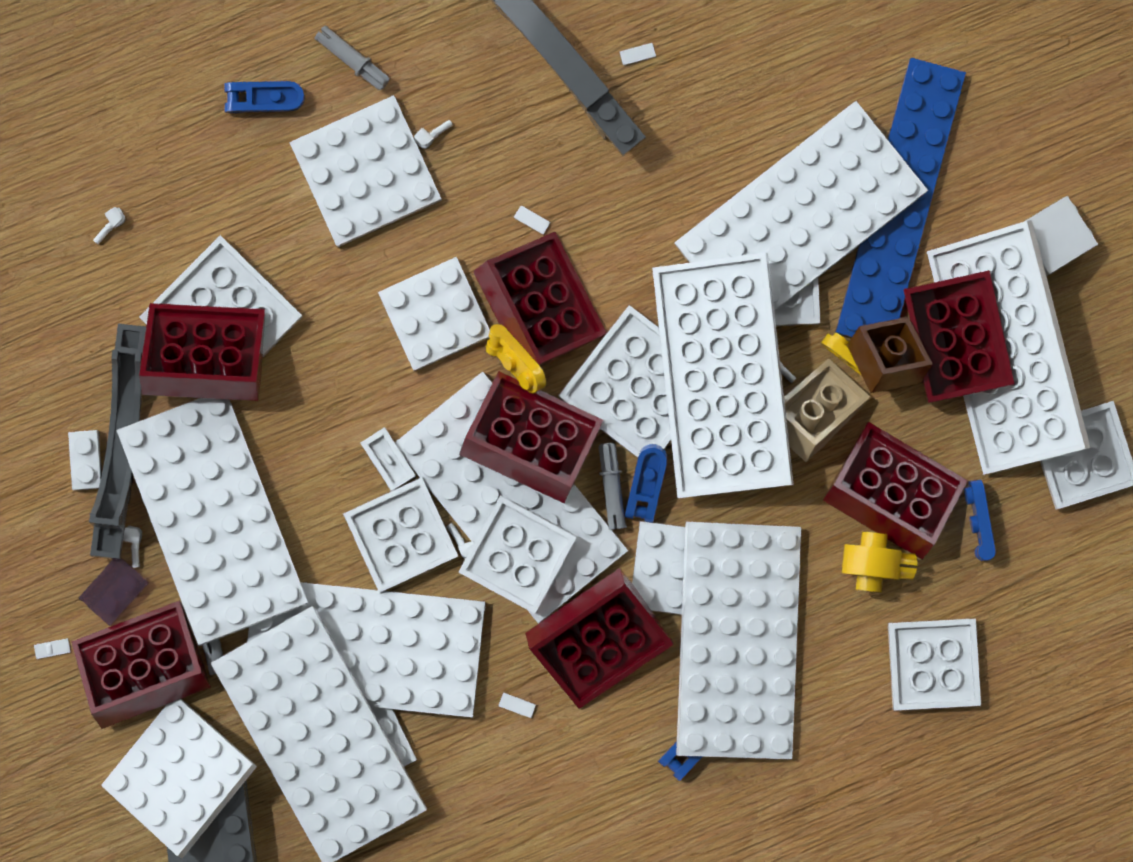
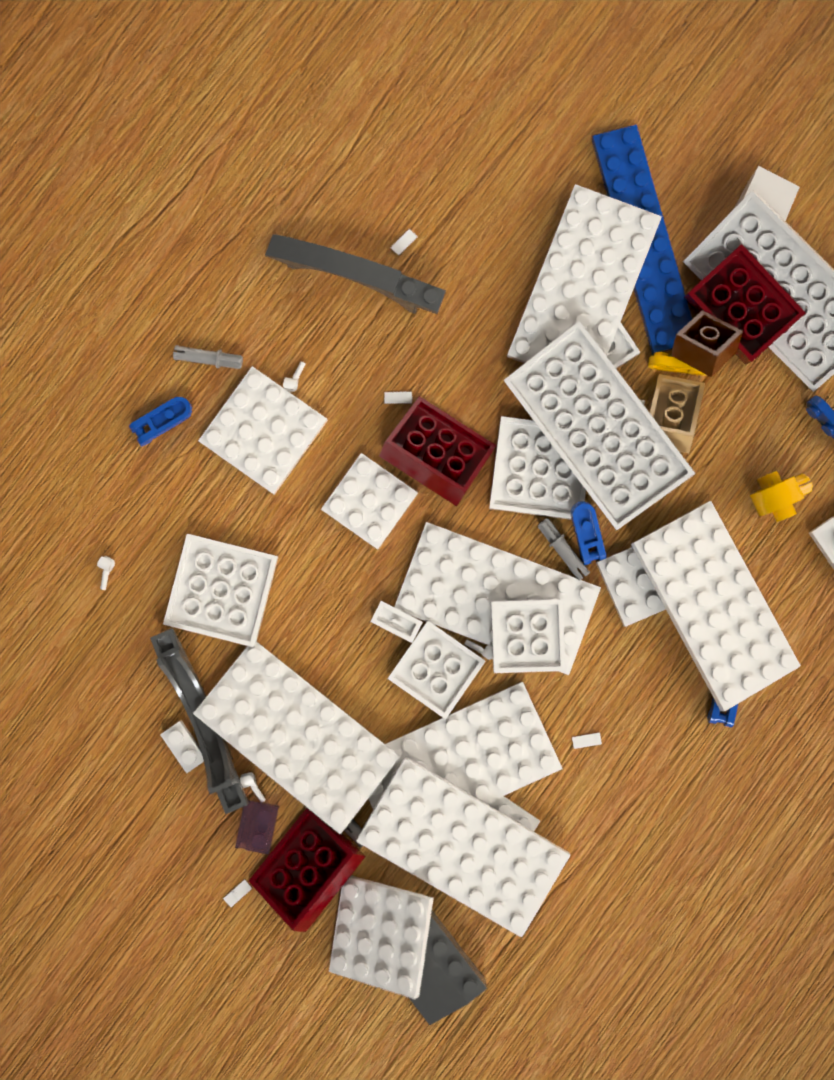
camera: 30 degrees left, 0 degrees up
(203, 352) = (221, 623): dark red slope -> none
(515, 359) = (445, 499): yellow plate -> none
(531, 437) = (489, 547): dark red slope -> none
(598, 638) = (618, 661): dark red slope -> none
(895, 490) = (761, 438): dark red slope -> none

